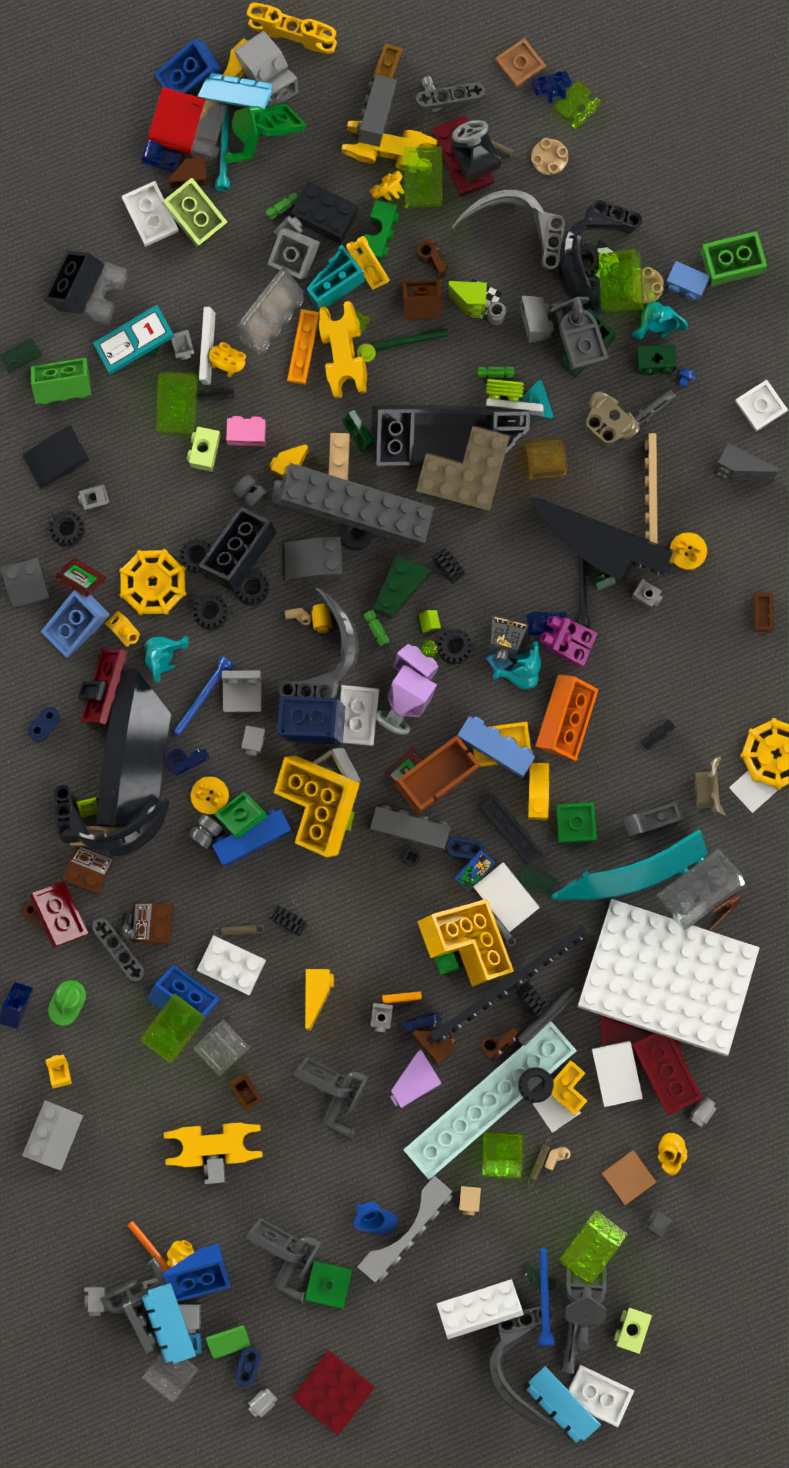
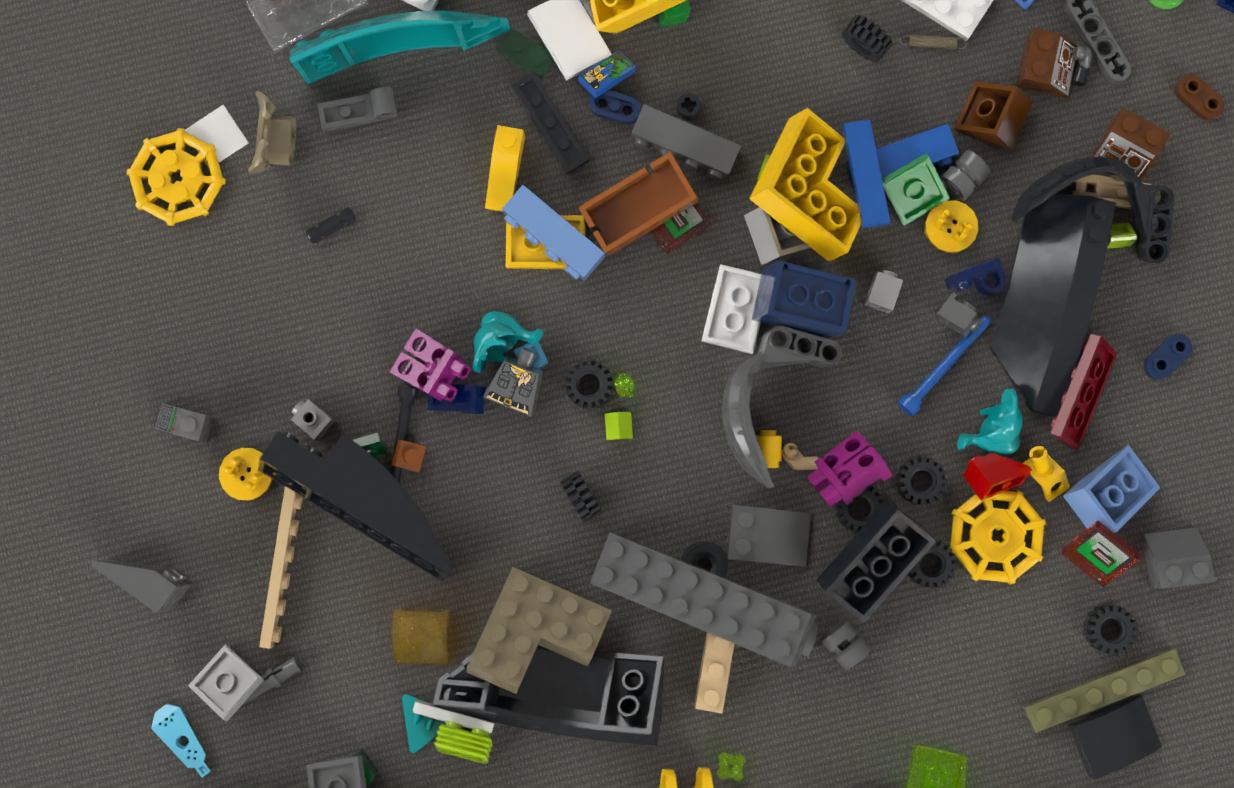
camera: 170 degrees left, 5 degrees up
(58, 914) = (1176, 89): plate -> none
(66, 487) = (1104, 690): none -> olive plate
(85, 497) = (1058, 671): light grey brick -> none
(92, 691) = (1100, 388): black tile -> none
(160, 621) = (994, 474): none -> red slope
(189, 880) = (994, 114): none -> reddish brown slope
(197, 729) = (959, 316): none -> dark grey brick
(206, 459) = (900, 702): yellowish green brick -> none
(242, 691) = (891, 361): light grey bracket -> none
(246, 431) = (840, 735): bright pink brick -> none
(264, 609) = (848, 470): none -> magenta hips
(277, 818) = (866, 174): none -> blue tile
(294, 455) = (785, 682): yellow slope -> none
(319, 396) = (727, 759): none -> clear neon green plate
(357, 431) = (682, 713): dark green plate -> none
(376, 628) = (693, 426): bright green axle -> none
(399, 586) = (653, 478): dark green wedge -> none
(408, 697) = (665, 316): lavender piece -> none
(414, 659) = (646, 363): lavender slope -> none
(496, 372) = (473, 773): bright green axle -> none
(567, 717) = (451, 263): orange slope -> none
(575, 579) = (408, 455): none -> dark orange plate
(576, 822) = (460, 120): green plate -> none
(601, 405) = (304, 661): dark tan piece -> none
(664, 353) = (227, 764): dark green brick -> none
(675, 407) = (226, 682): none -> light grey tile
(686, 374) = (203, 728): blue plate -> none
(706, 372) = (173, 731): none -> medium azure piece
(738, 579) = (184, 423): none -> flat silver slope
(761, 405) = (105, 669): white plate -> none
(763, 612) = (157, 372): reddish brown plate -> none

